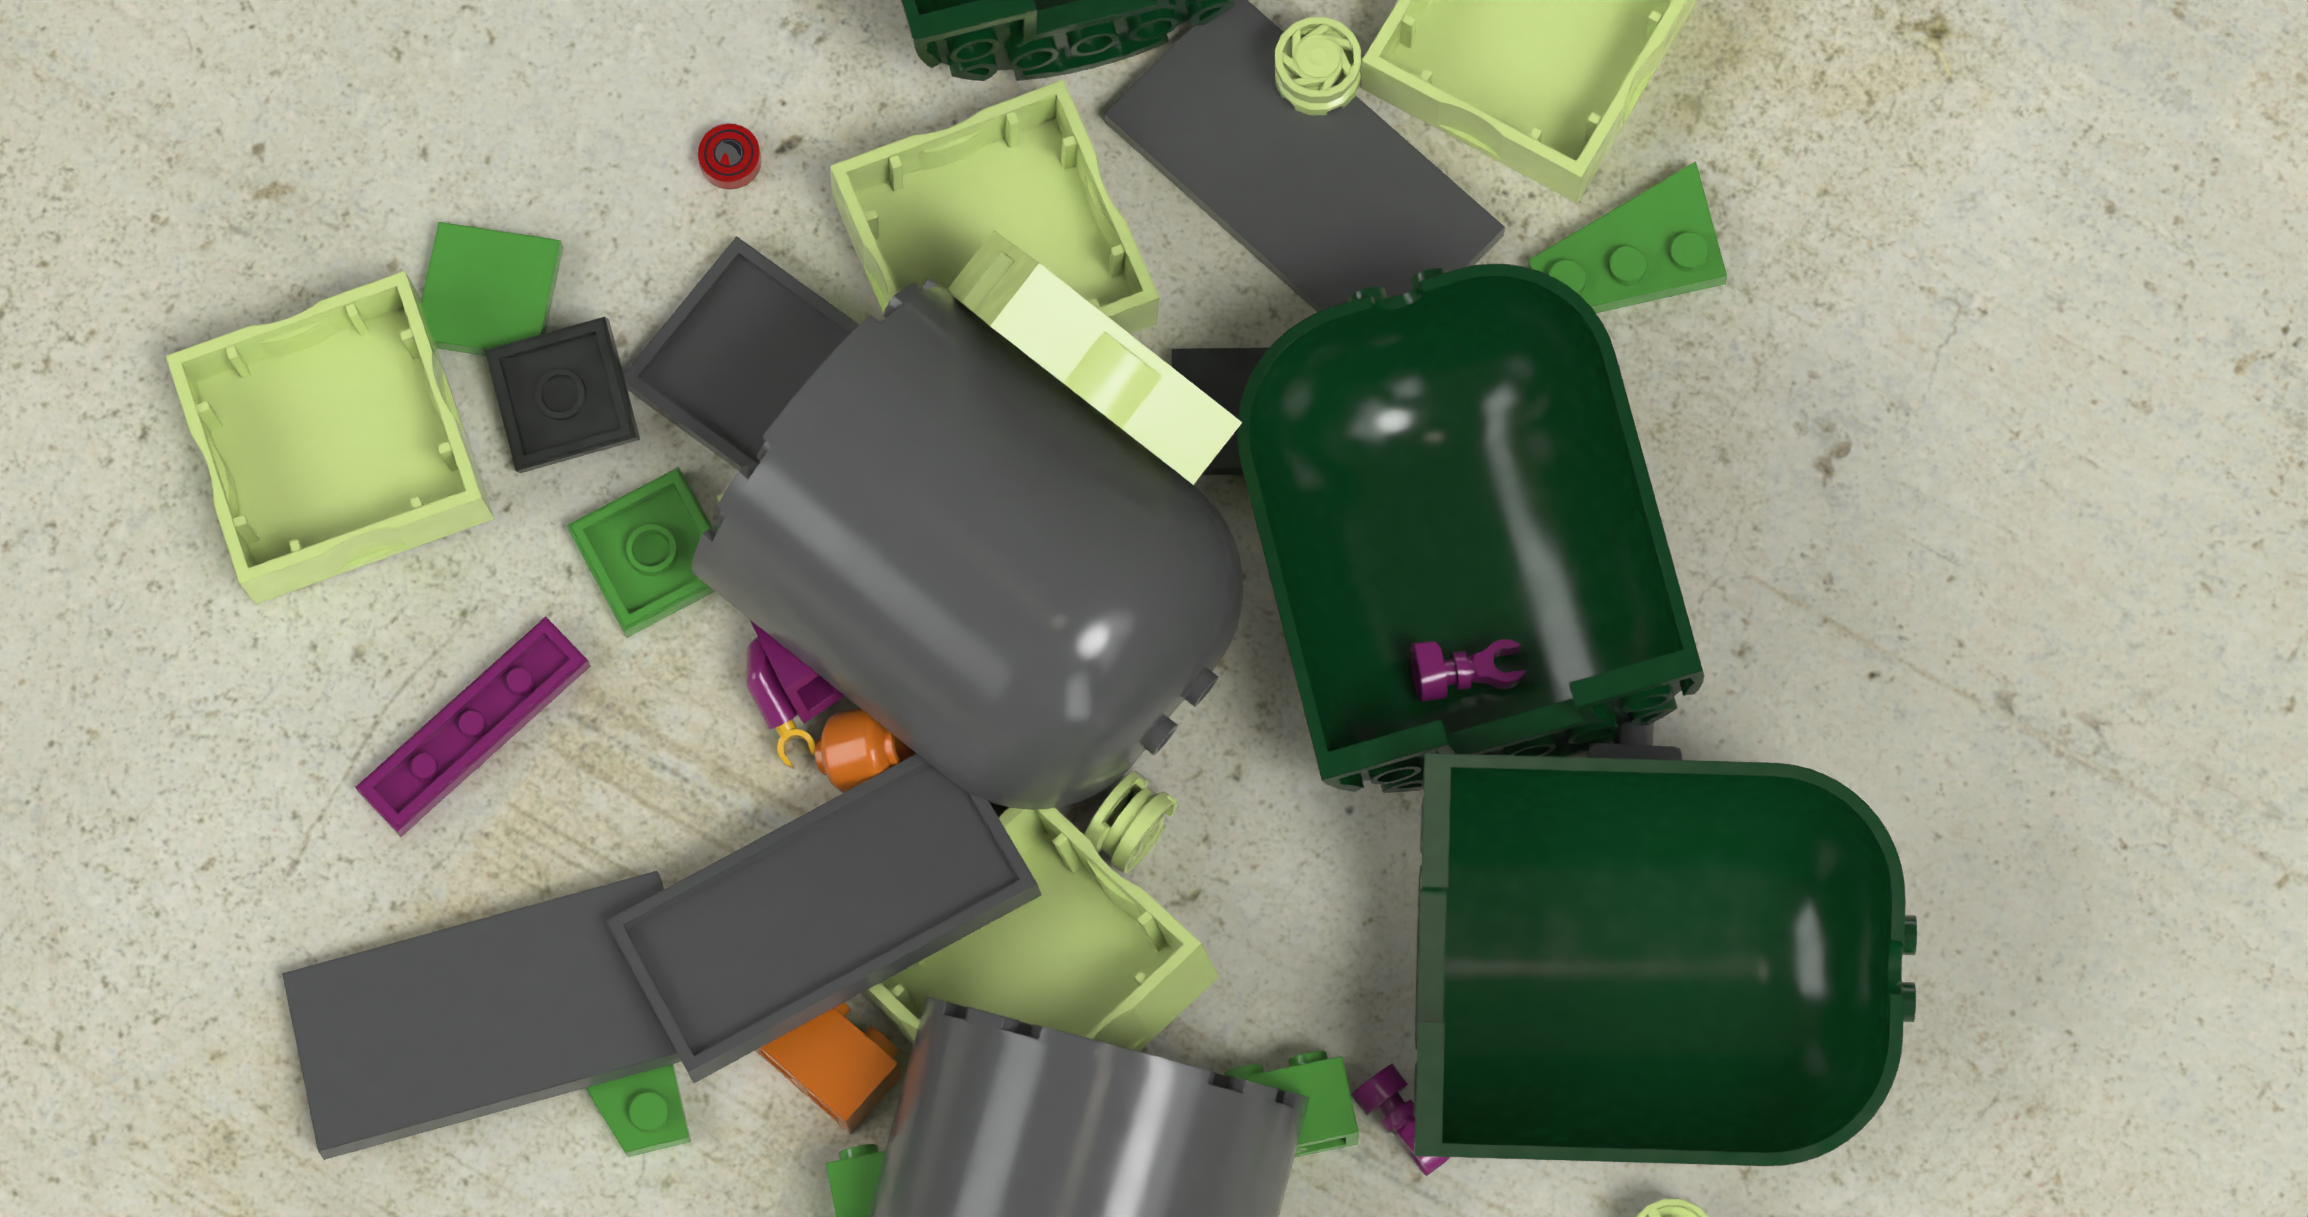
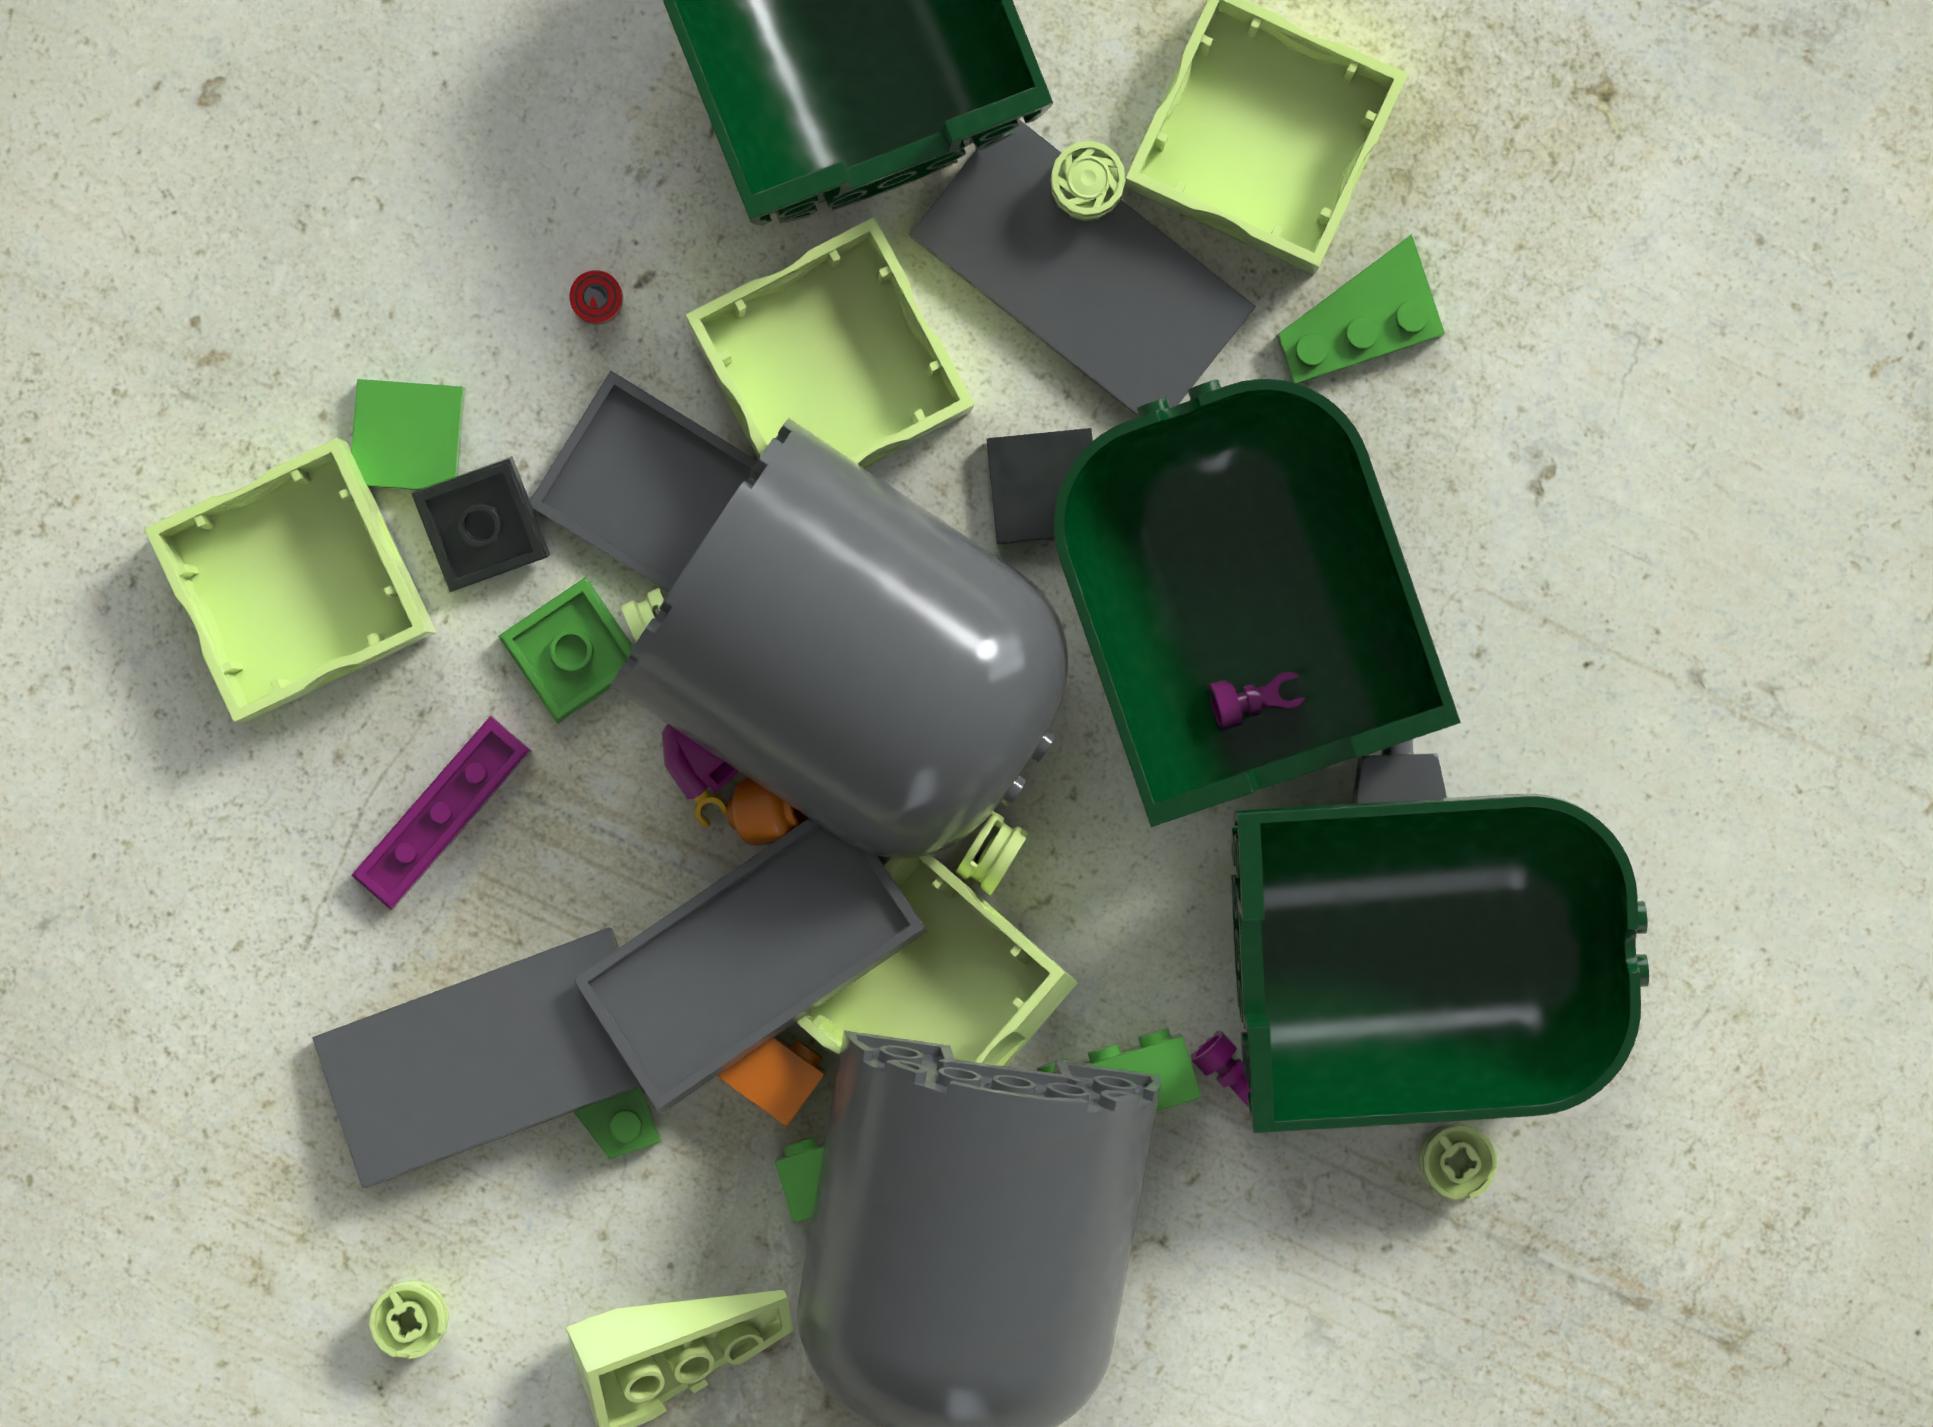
camera: 10 degrees left, 15 degrees up
(1094, 356) = (928, 486): yellowish green tile -> none

